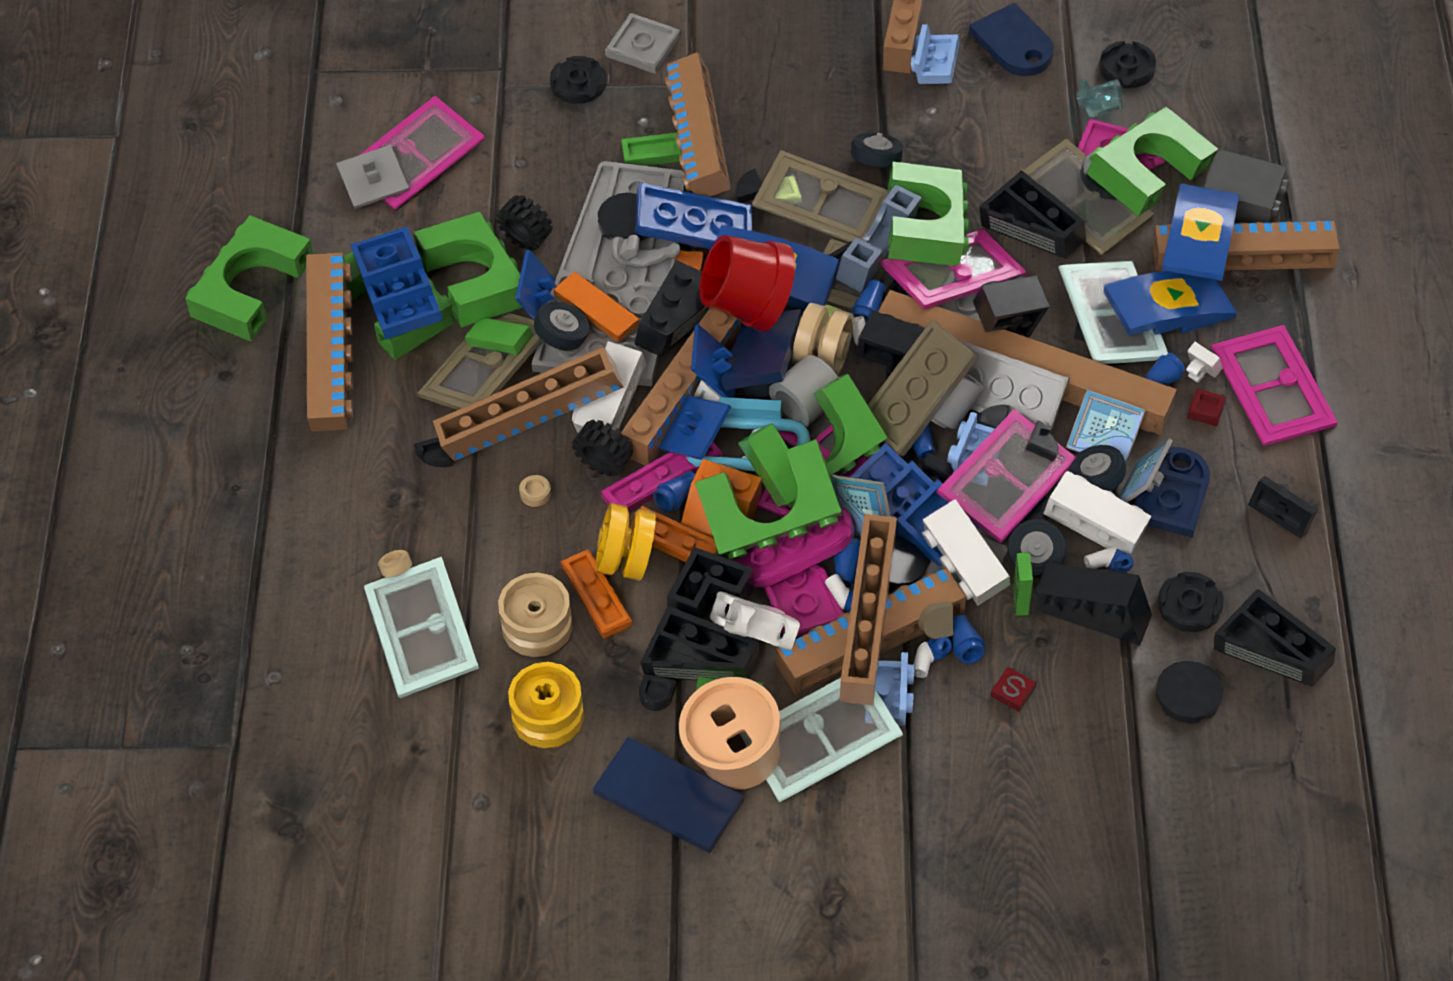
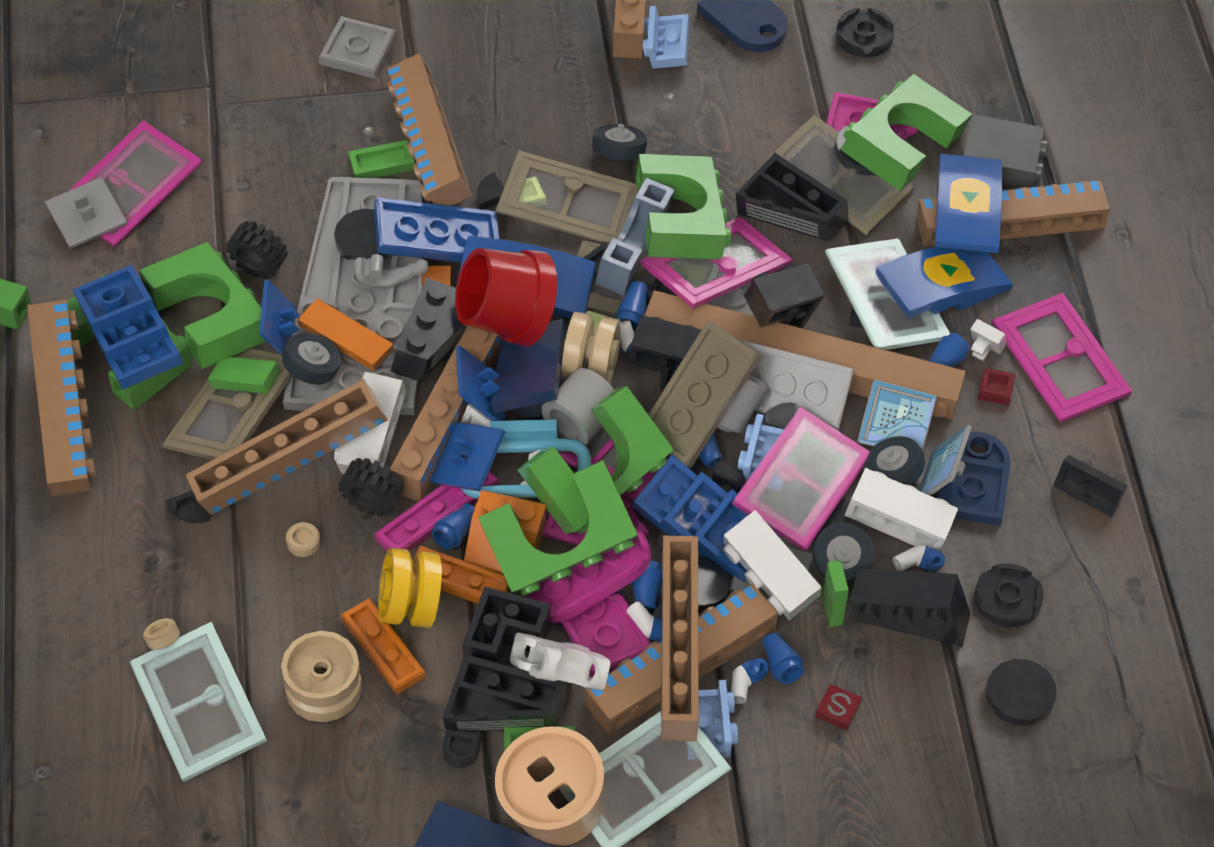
camera: 10 degrees left, 0 degrees up
(546, 704) = (345, 774): yellow wheel -> none
(578, 80) = (293, 91): black tile -> none
(861, 498) = (656, 519): piece -> none
(937, 620) = (751, 641): dark tan tile -> none
(1042, 442) = (834, 439): black tile -> none
(1100, 98) = (843, 69): clear light blue bracket -> none
(1274, 640) = (1103, 629): black wedge -> none

